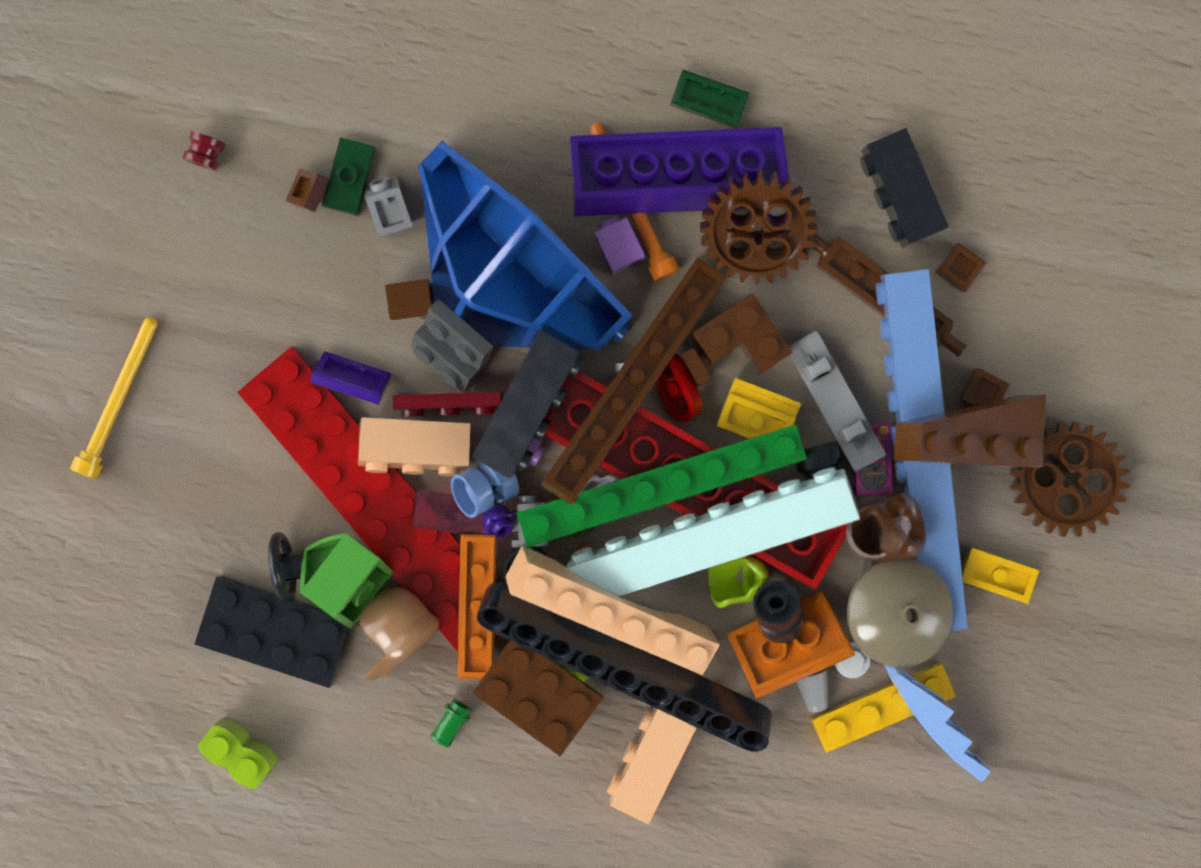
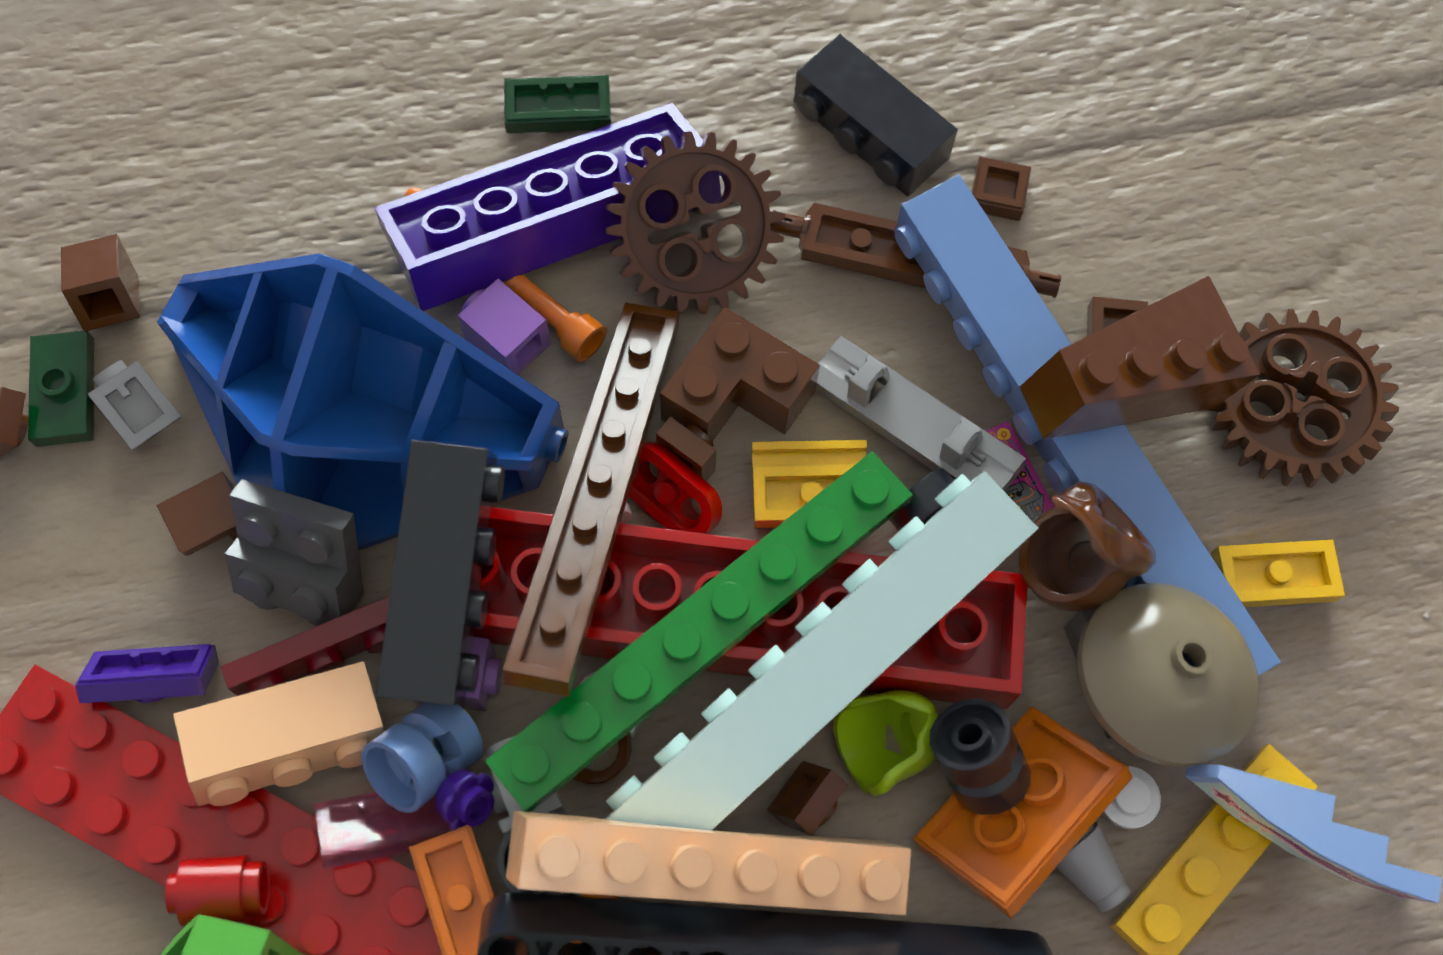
camera: 25 degrees left, 20 degrees down
(356, 517) = (218, 888): none -> red brick
(391, 120) = (100, 282): none -> reddish brown brick
(679, 592) = (808, 798): none -> reddish brown plate

